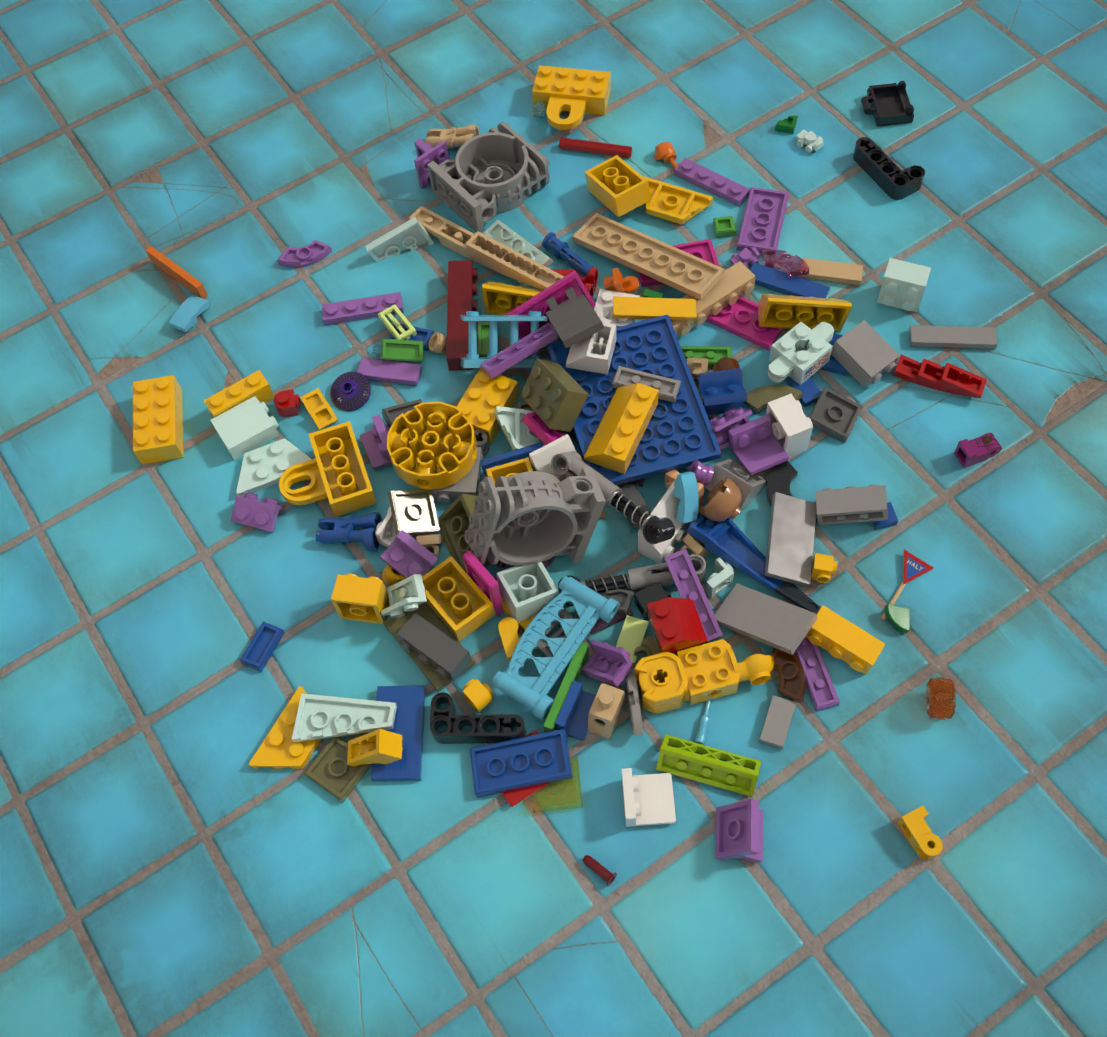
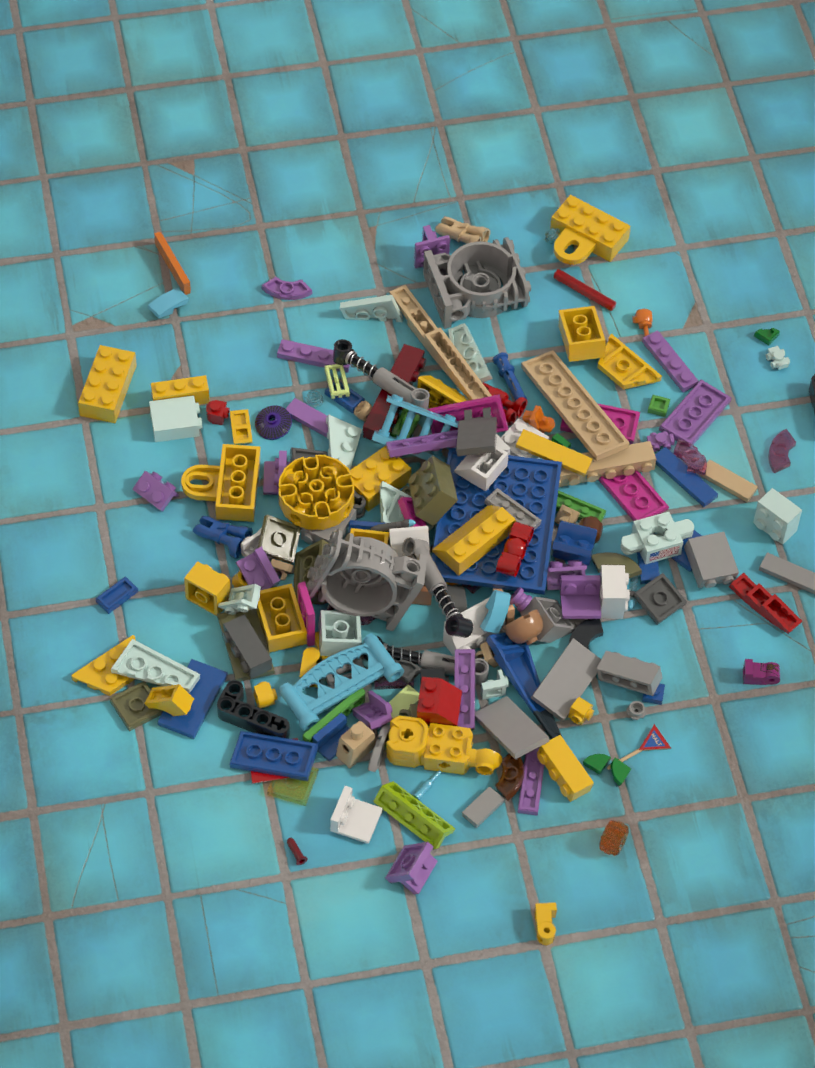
camera: 15 degrees right, 5 degrees down
(266, 464) = (178, 455): light aqua wing -> none
(402, 350) = (330, 405): bright green tile -> none
(431, 380) = (342, 440): none -> light aqua wing
(443, 301) = (344, 354): none -> piece
(542, 441) = (400, 524): none -> dark grey piece
(671, 422) = (515, 549): none -> red piece
(788, 311) = (681, 505): yellow slope -> none
(861, 224) = (779, 451): none -> clear pink tile
(869, 617) = (597, 762): none -> green tile
(877, 537) = (636, 705): none -> light grey plate

